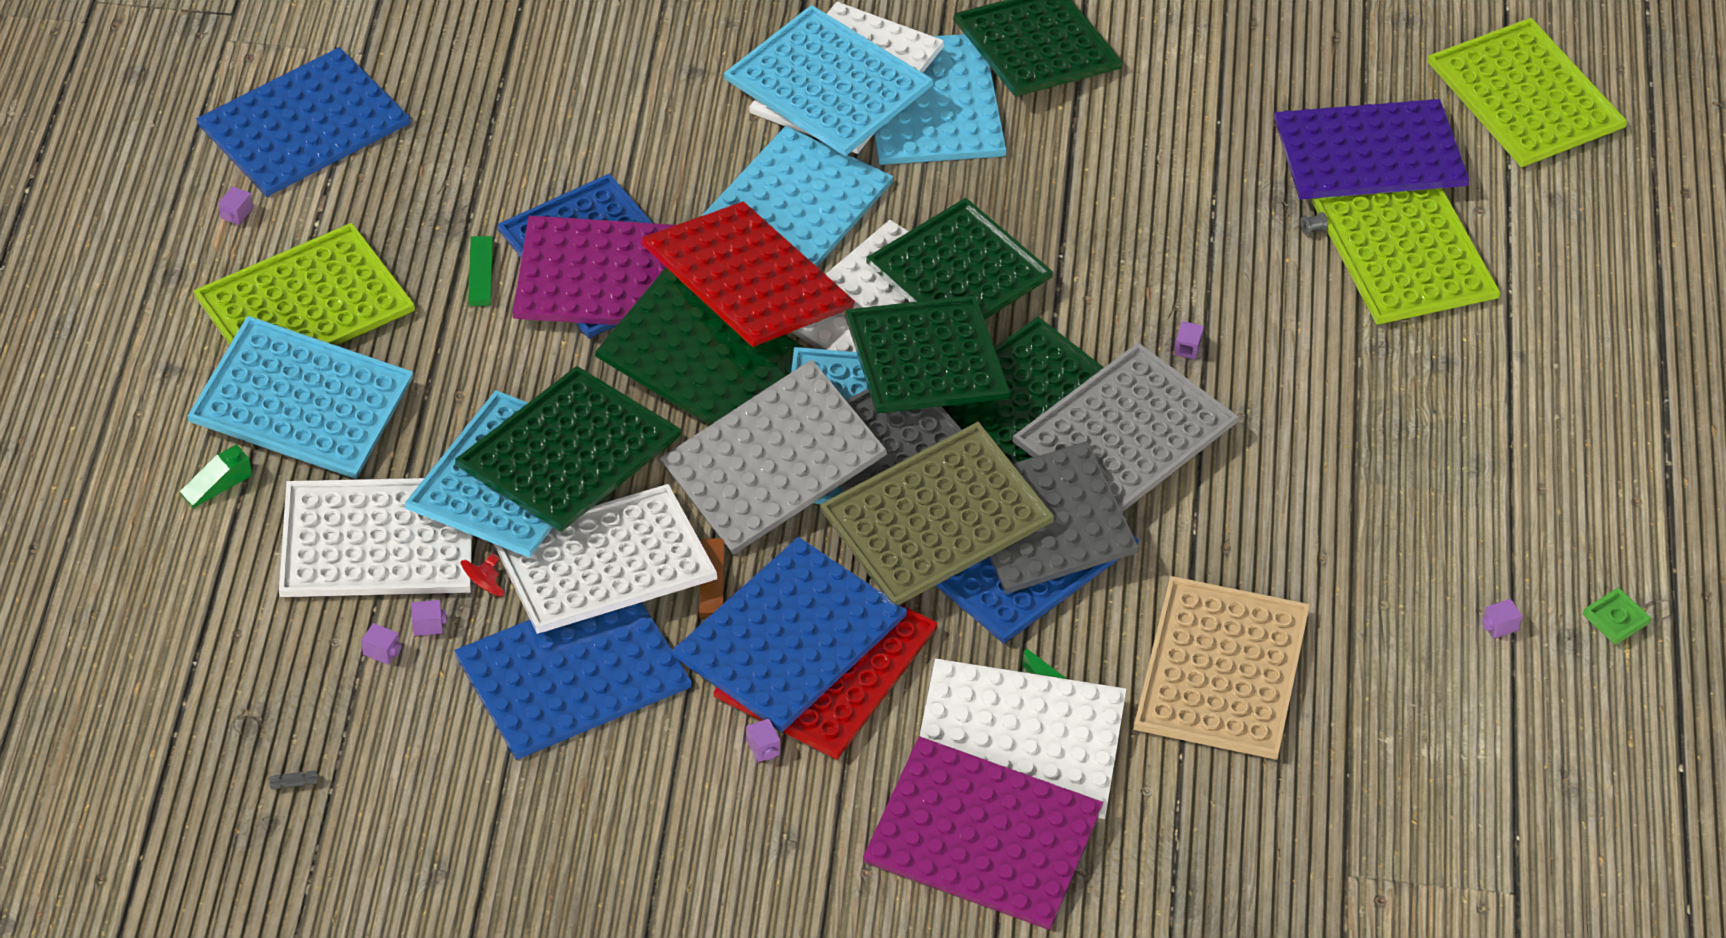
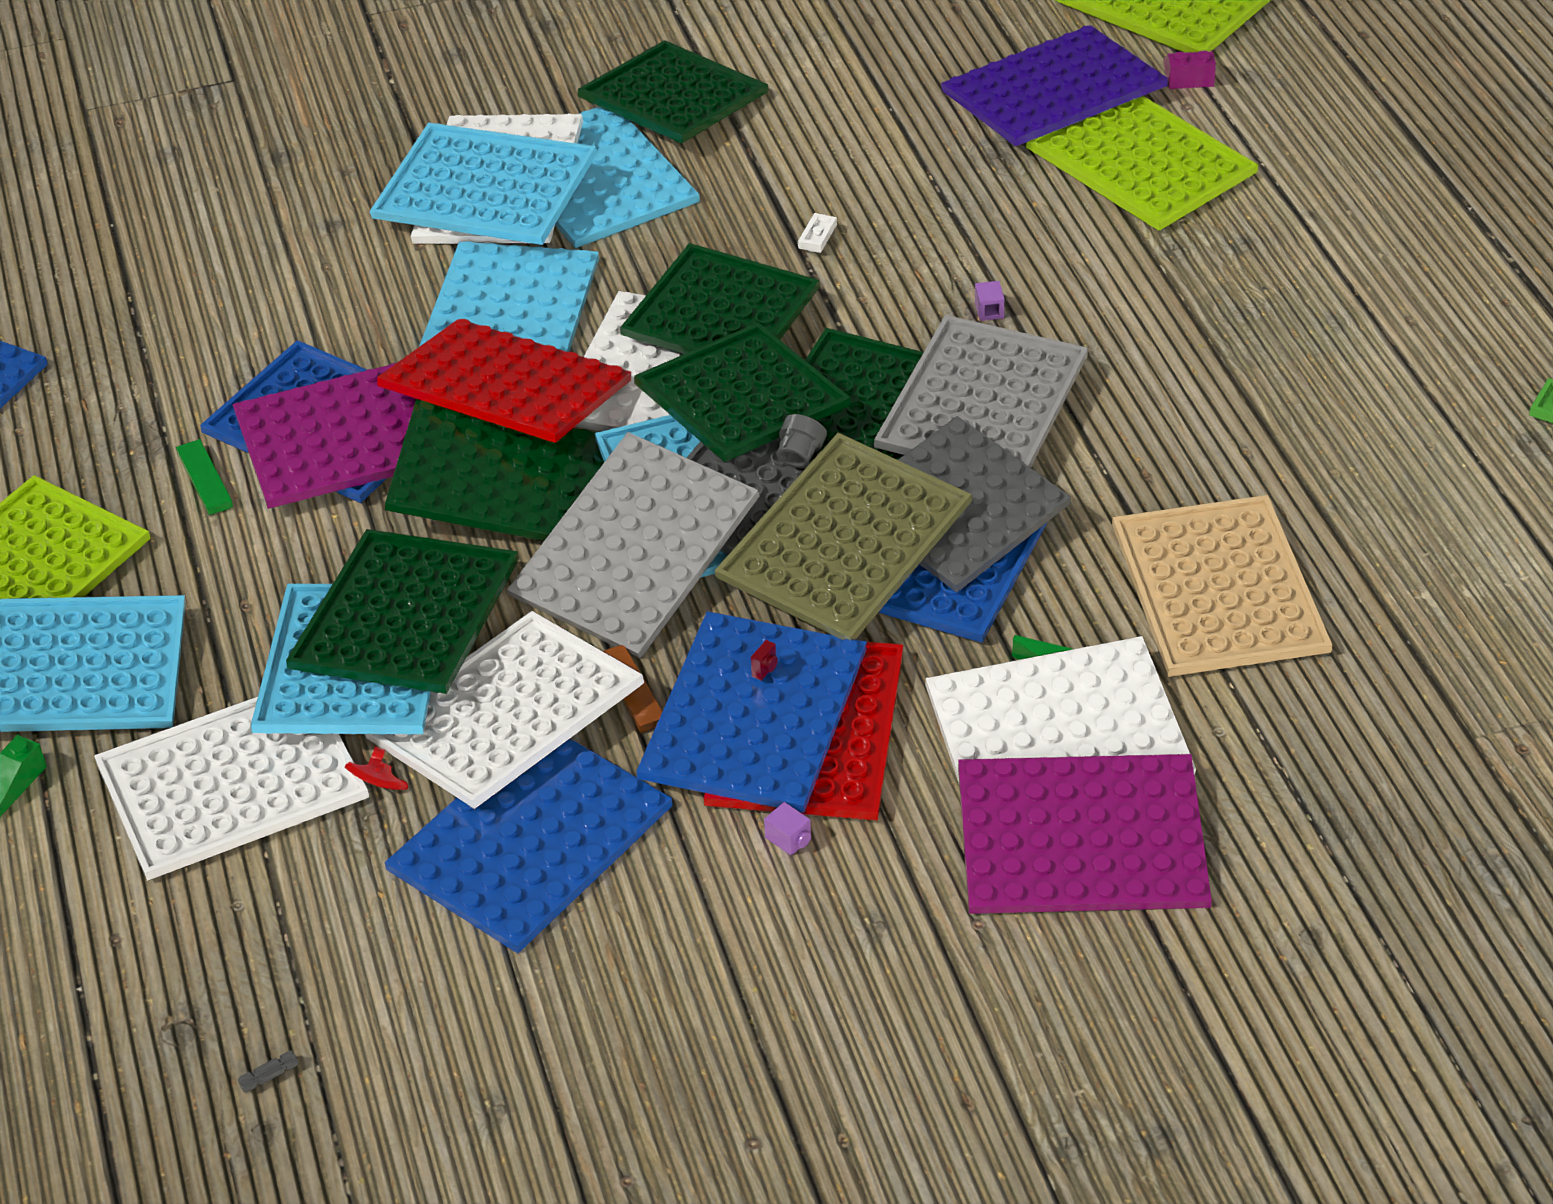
camera: 20 degrees left, 5 degrees down
(381, 644) = (296, 886): medium lavender brick -> none
(427, 617) = (335, 839): medium lavender brick -> none
(813, 596) = (764, 660): none -> dark red plate
(944, 417) = (800, 440): none -> dark grey piece
(1083, 223) = (817, 232): none -> white plate
(1314, 223) = (1045, 161): dark grey bush -> none
(1500, 176) = (1190, 69): none -> magenta slope
(1501, 618) = (1459, 443): medium lavender brick -> none

